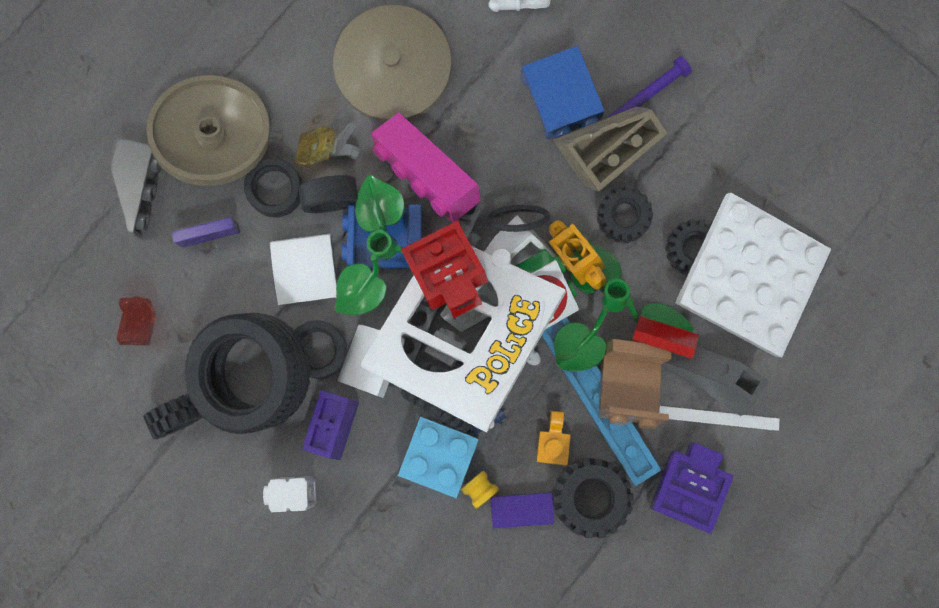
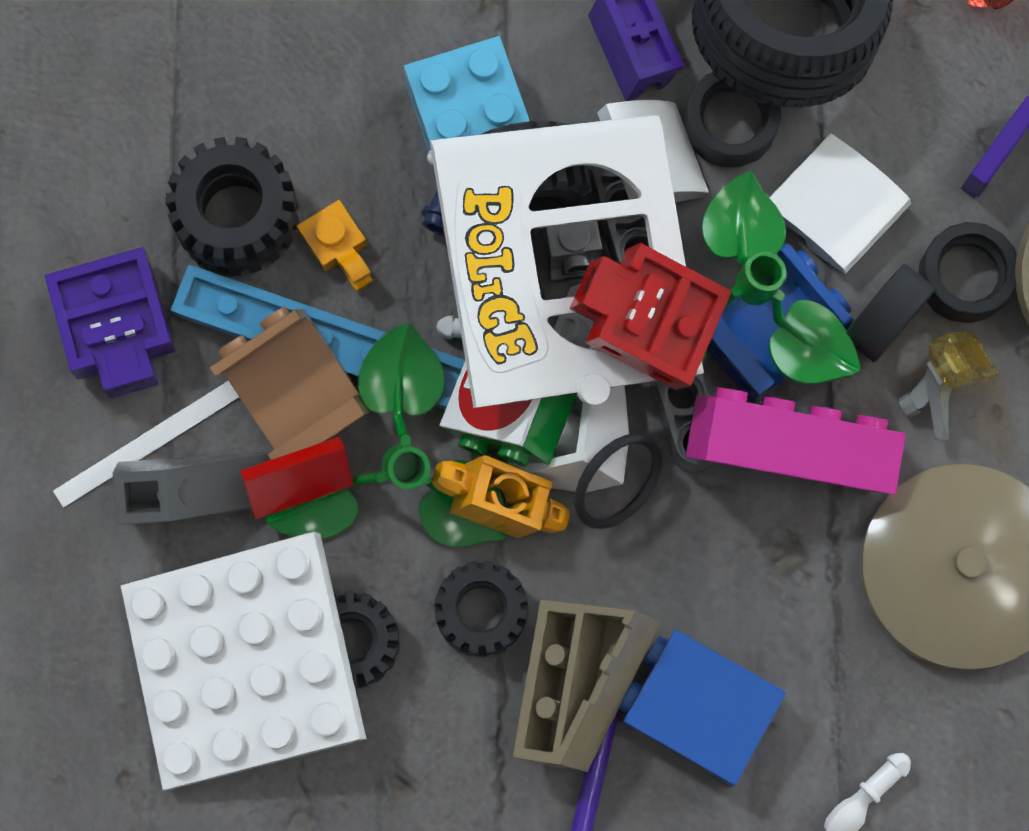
camera: 135 degrees right, 5 degrees down
(479, 489) = (383, 109): yellow wheel -> none
(522, 510) = (312, 128): dark purple tile -> none

